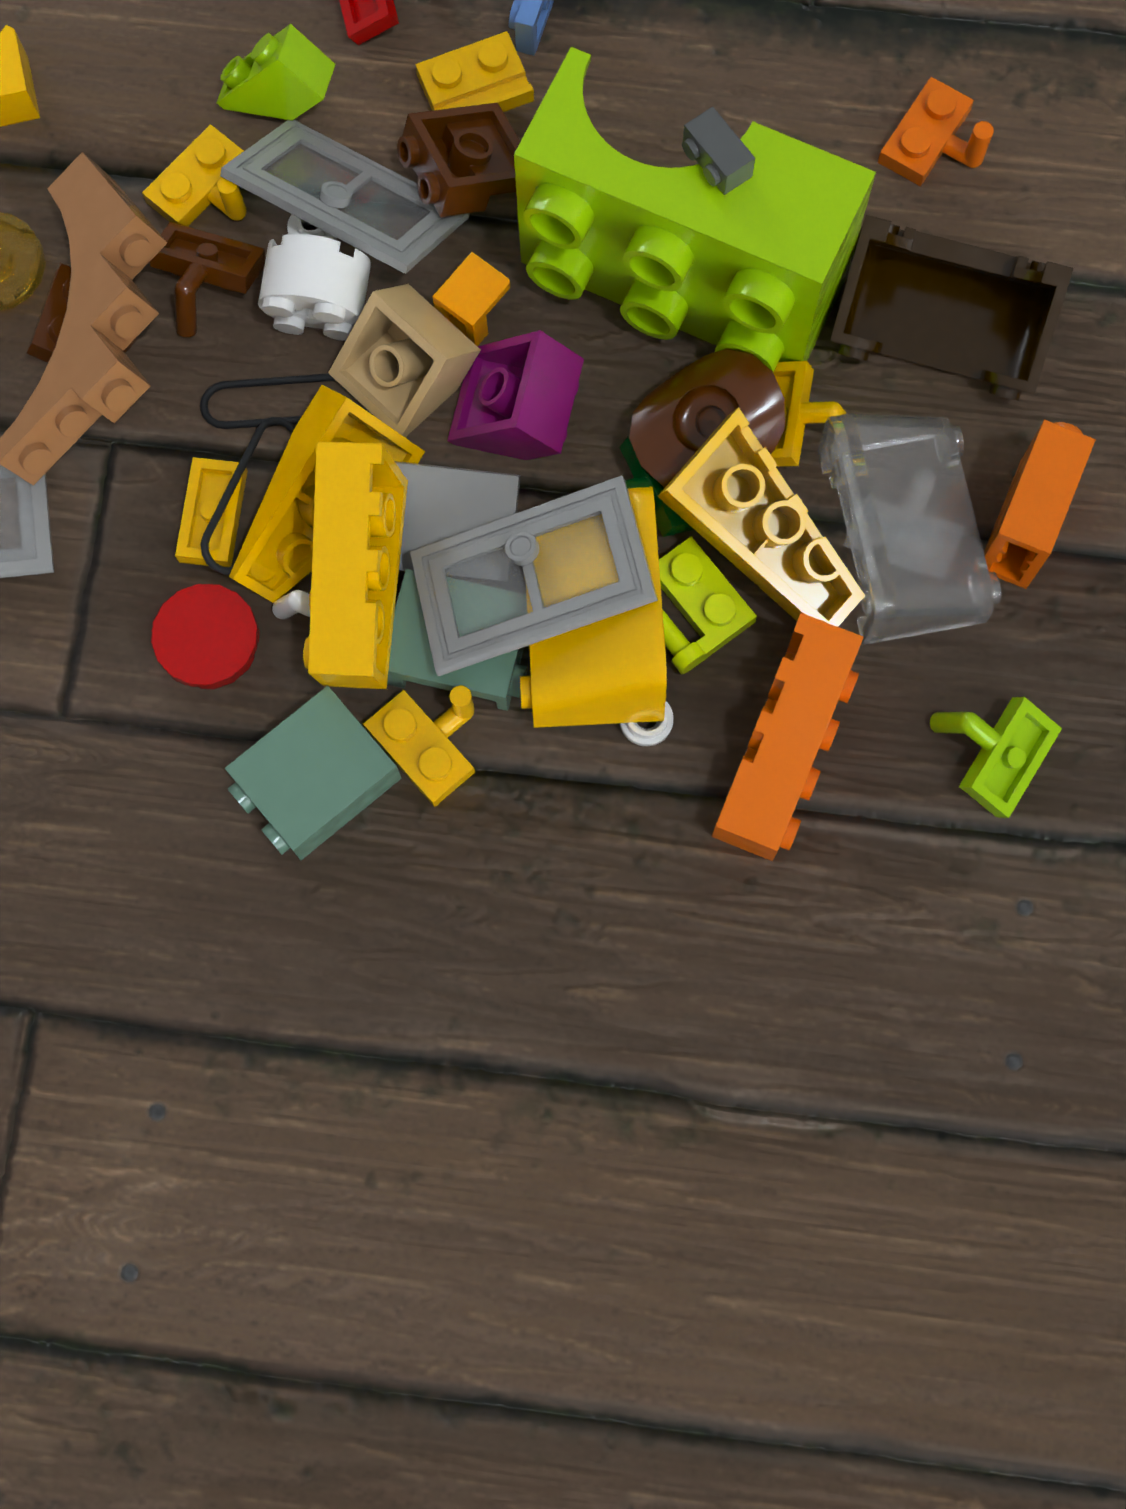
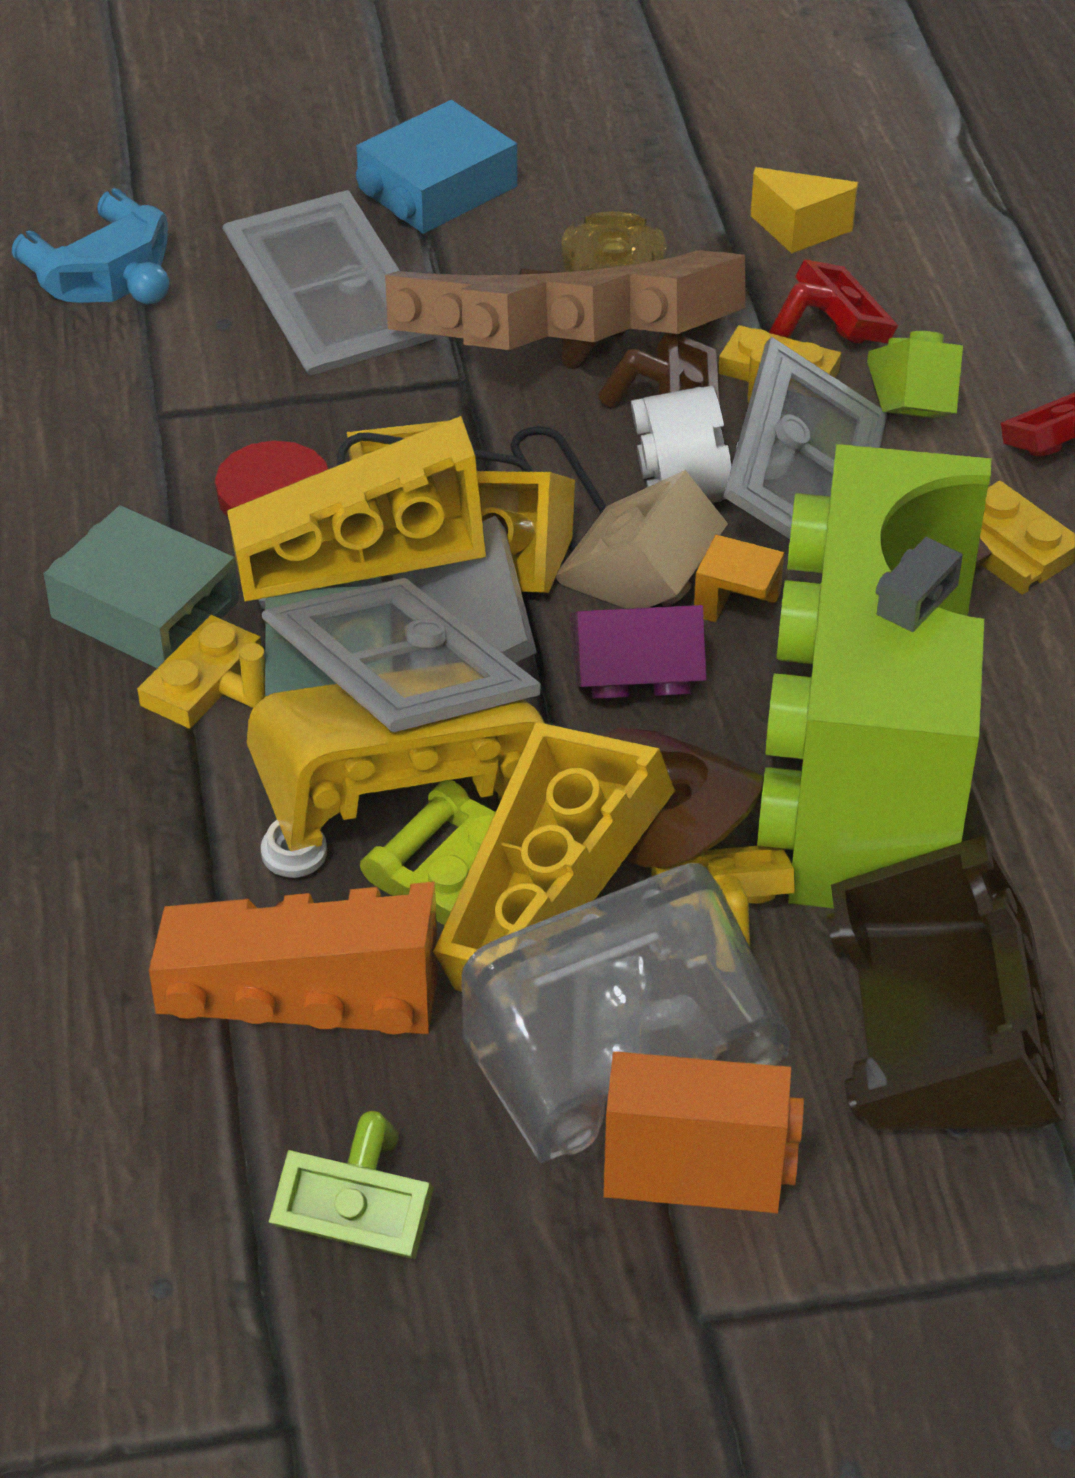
camera: 70 degrees right, 30 degrees down
(142, 100) = (841, 297): none -> red plate

